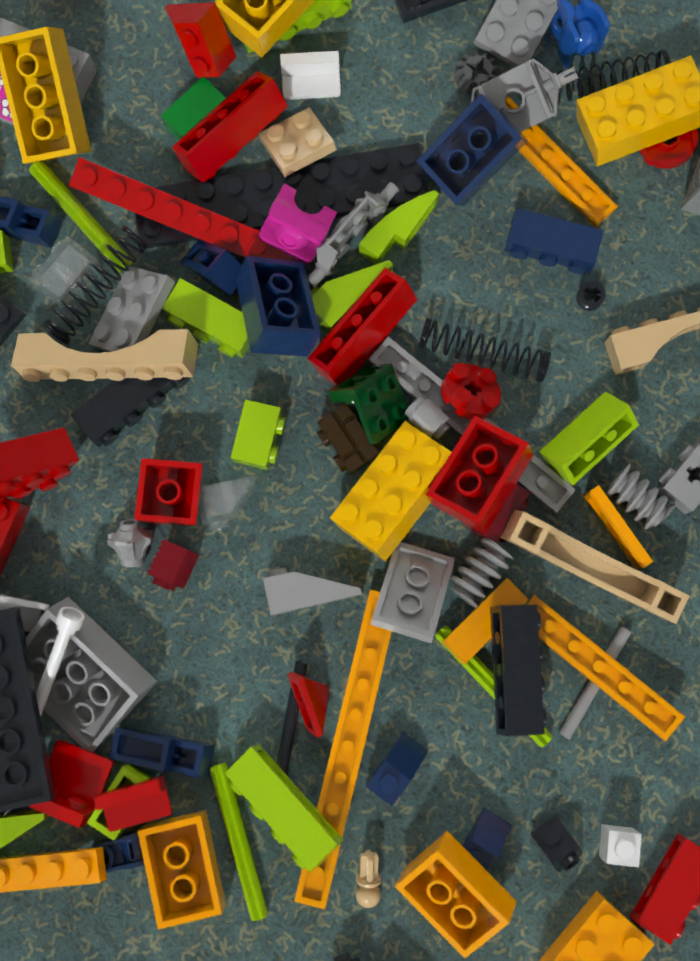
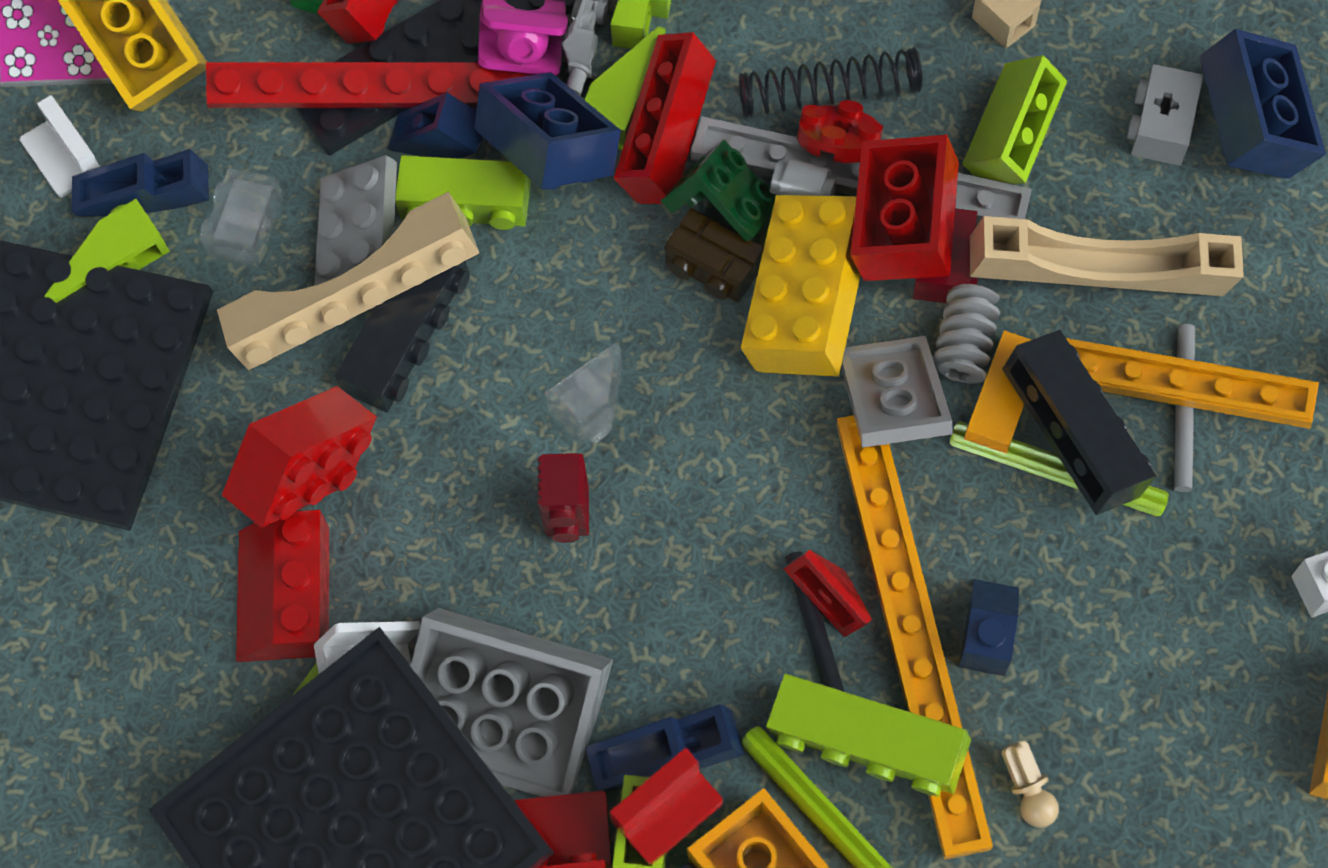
camera: 25 degrees left, 15 degrees down
(61, 334) = (333, 141): black piece -> none
(68, 623) = (463, 617): white piece -> none
(77, 212) = (230, 148): lime axle -> none
(130, 543) = (491, 501): light grey rock -> none
(168, 492) = (515, 412): red slope -> none
(257, 435) = (594, 301): lime brick -> none
(297, 591) = (753, 458): light grey slope -> none
(456, 894) = (1156, 734): light orange brick -> none
(487, 837) = (1153, 672): dark blue slope -> none
(557, 844) = (1250, 621): black bracket -> none
(618, 528) = (1105, 208): light orange tile -> none
(639, 497) = (1115, 164): light grey piece -> none

